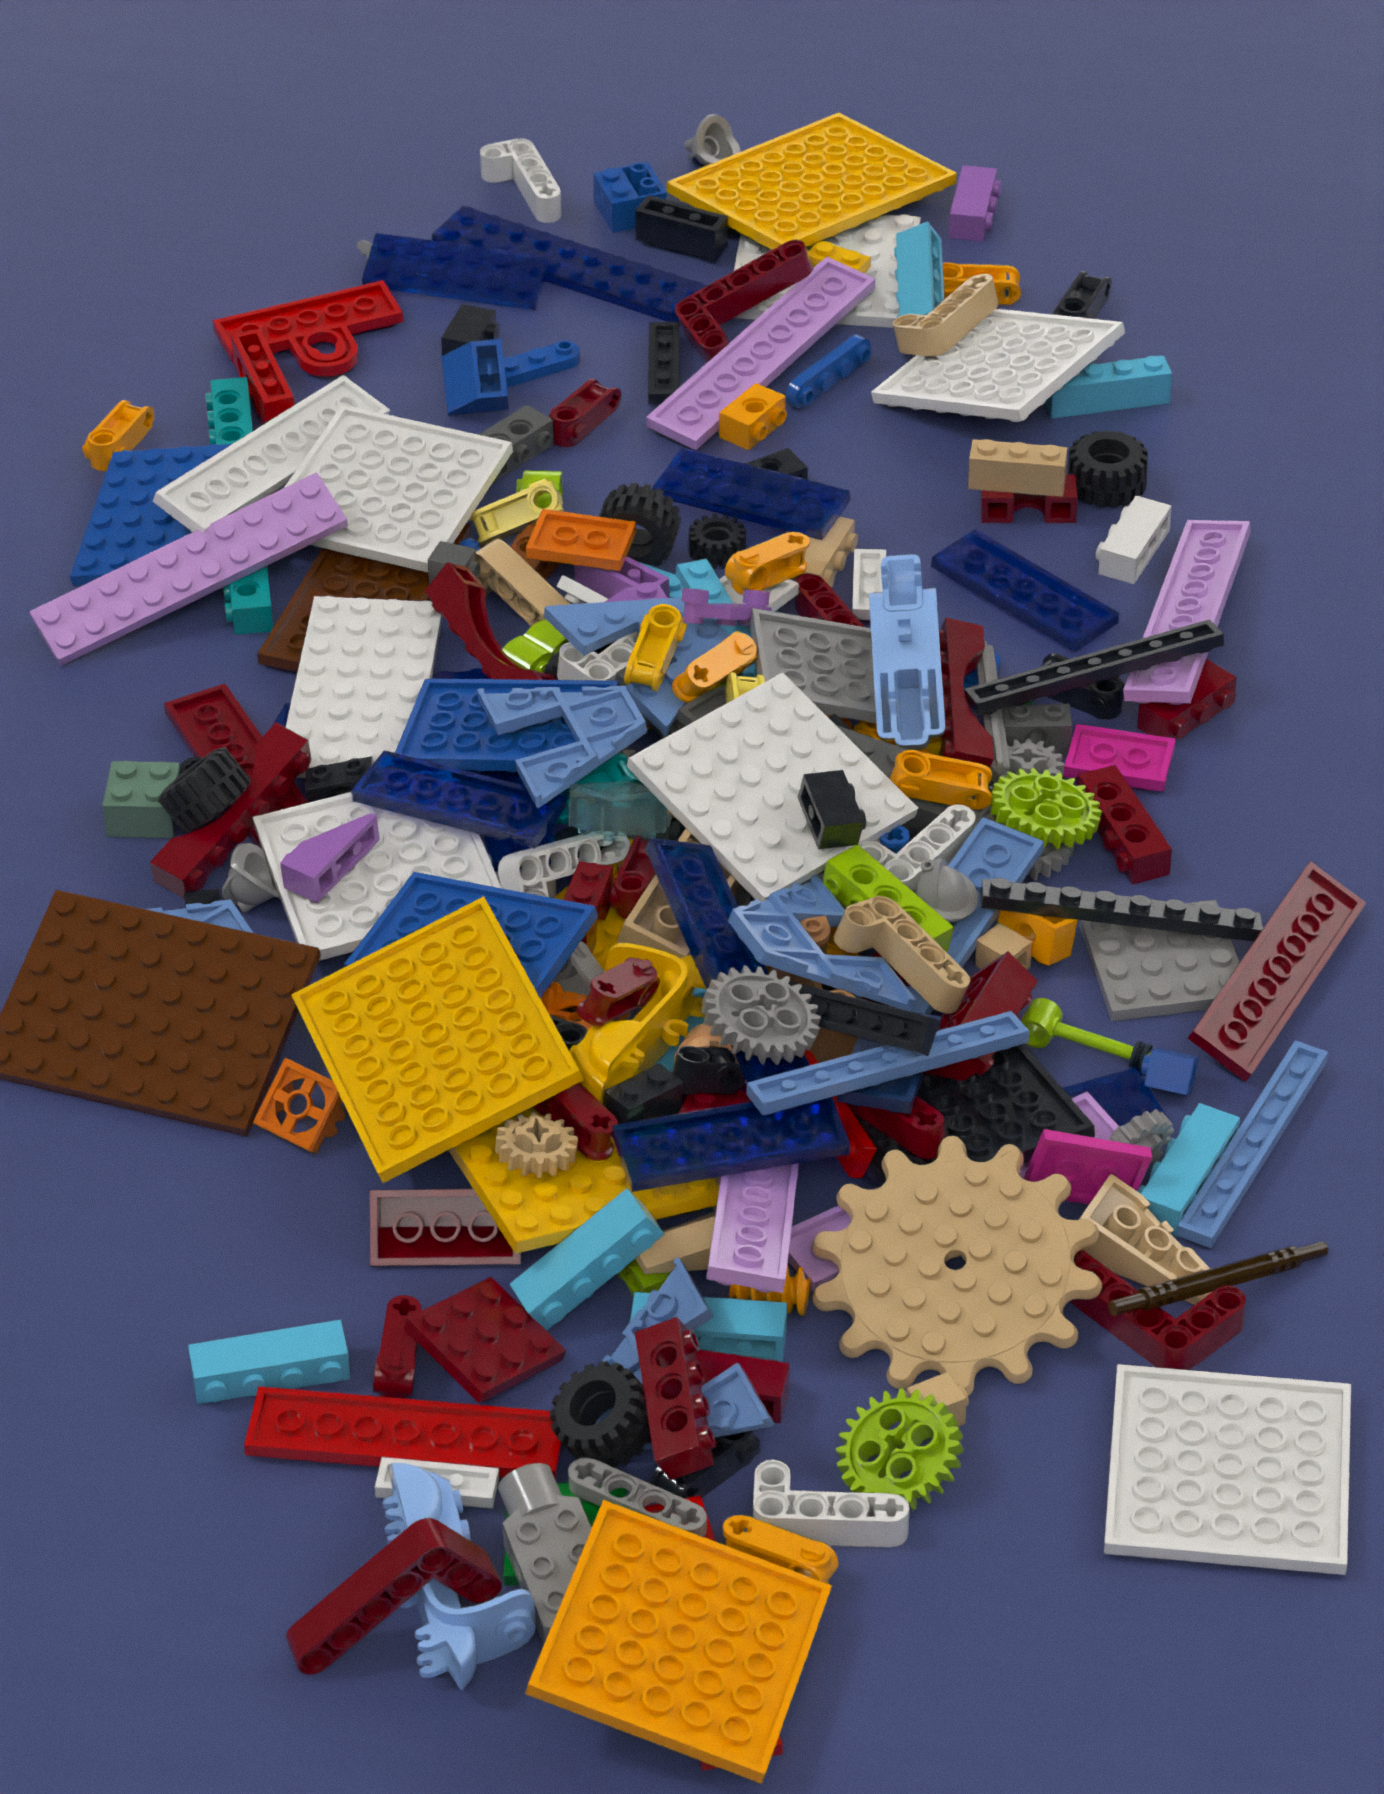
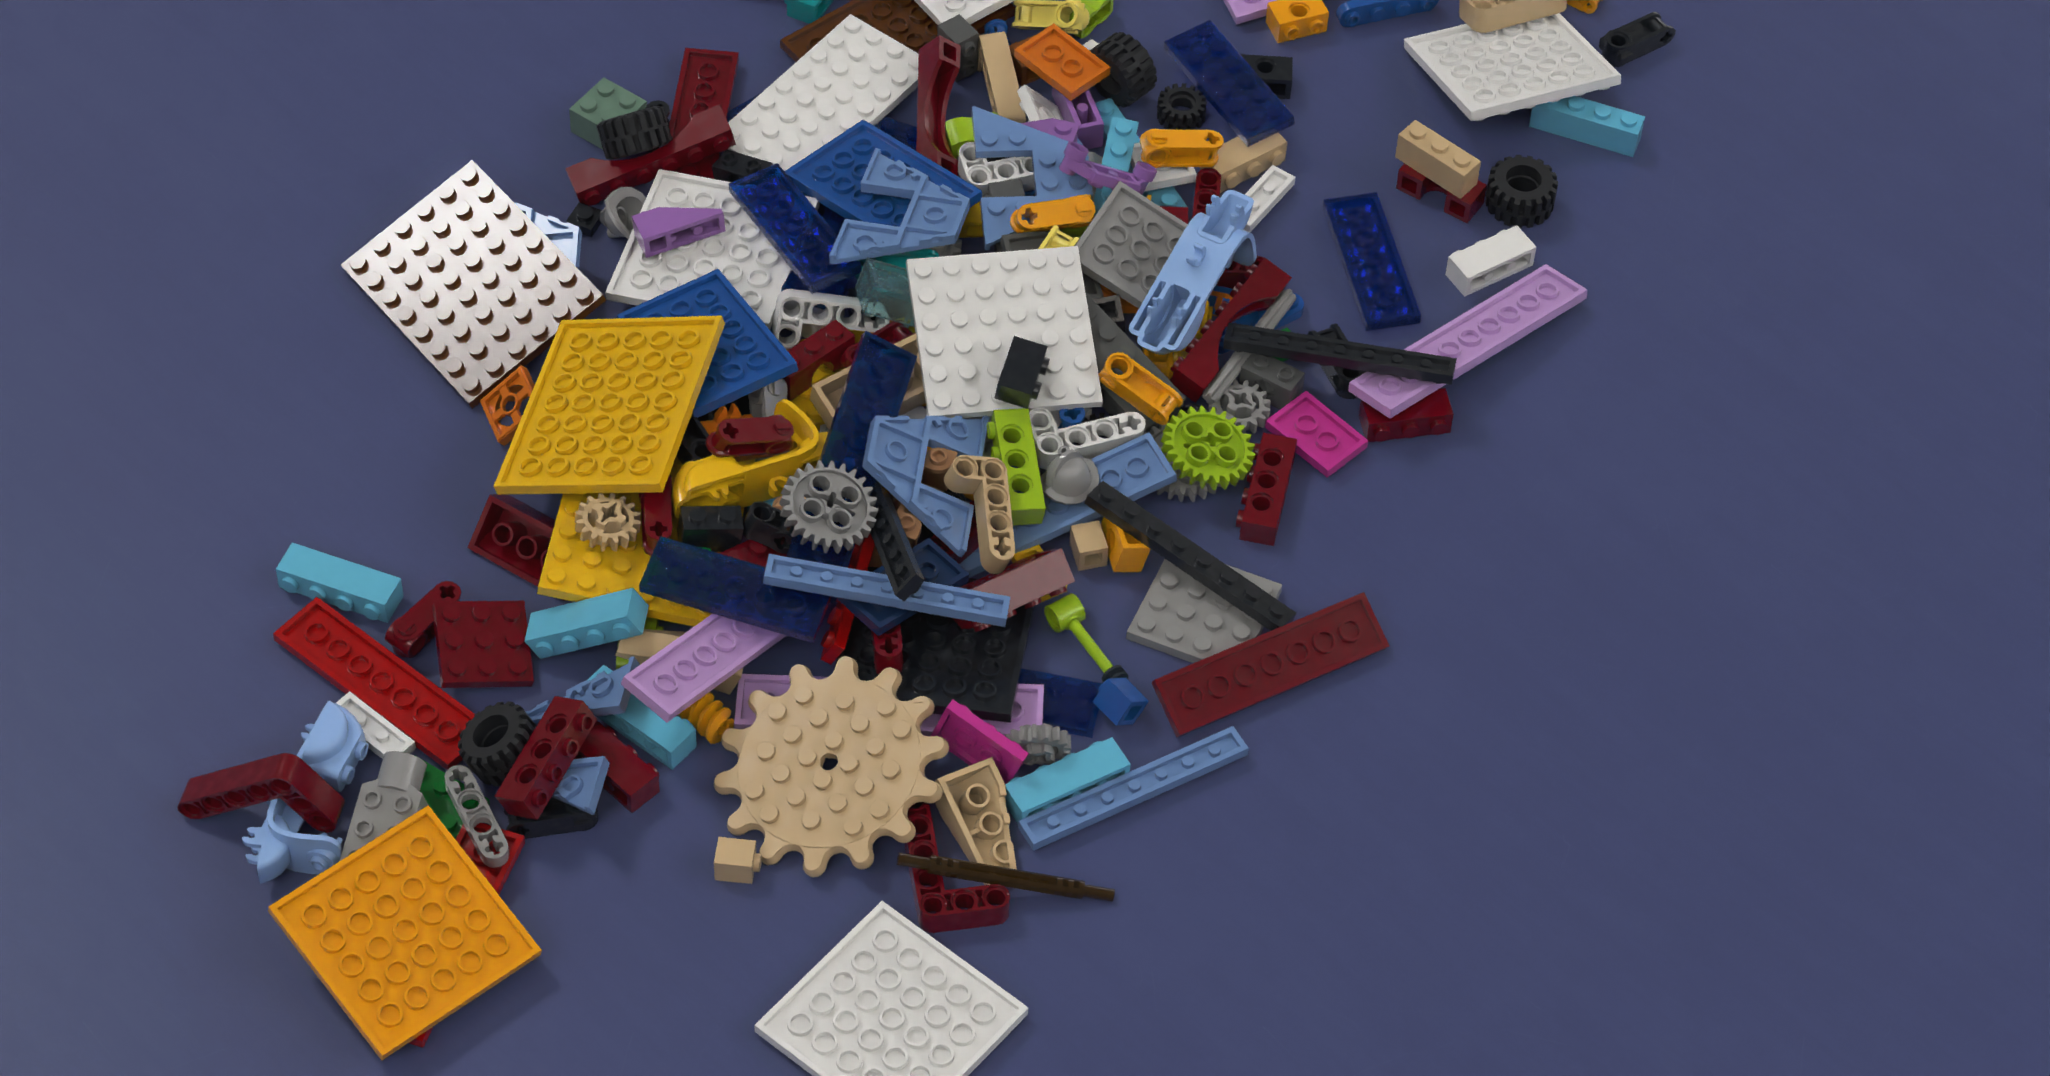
camera: 30 degrees right, 10 degrees up
(655, 646) = (1016, 179): yellow piece -> none
(781, 1547) = (536, 907): light orange piece -> none
(829, 1516) = (625, 919): white beam -> none
(900, 1447) = (677, 879): lime gear -> none

